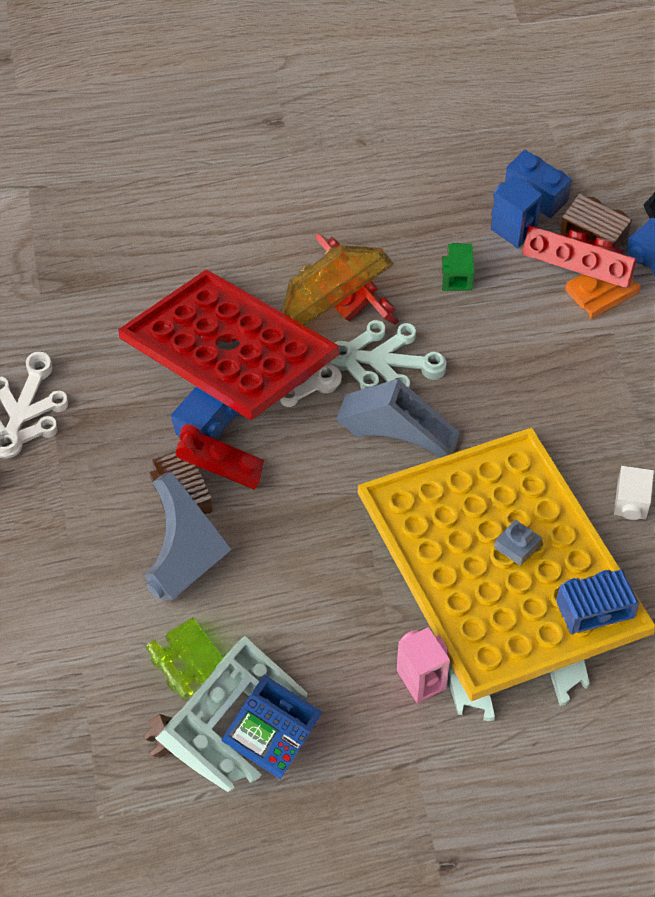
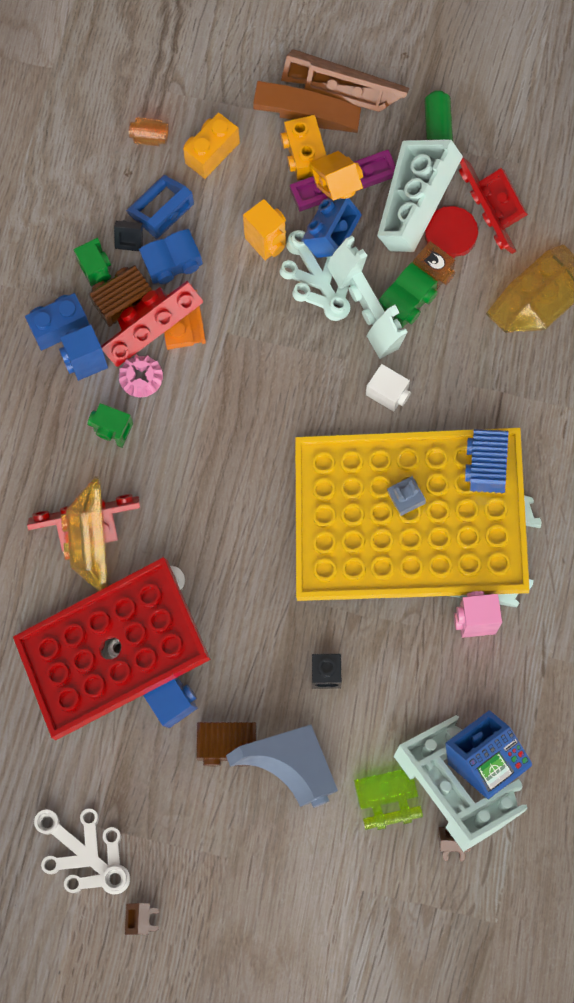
camera: 65 degrees left, 15 degrees up
(218, 457) = (218, 700): red plate -> none
(295, 546) = (326, 671): none -> black brick
(382, 357) = (172, 527): light aqua plant -> none
(398, 413) = (243, 539): sand blue arch -> none
(531, 283) = (140, 387): none -> bright pink gear
(618, 187) = (93, 261): none -> green brick

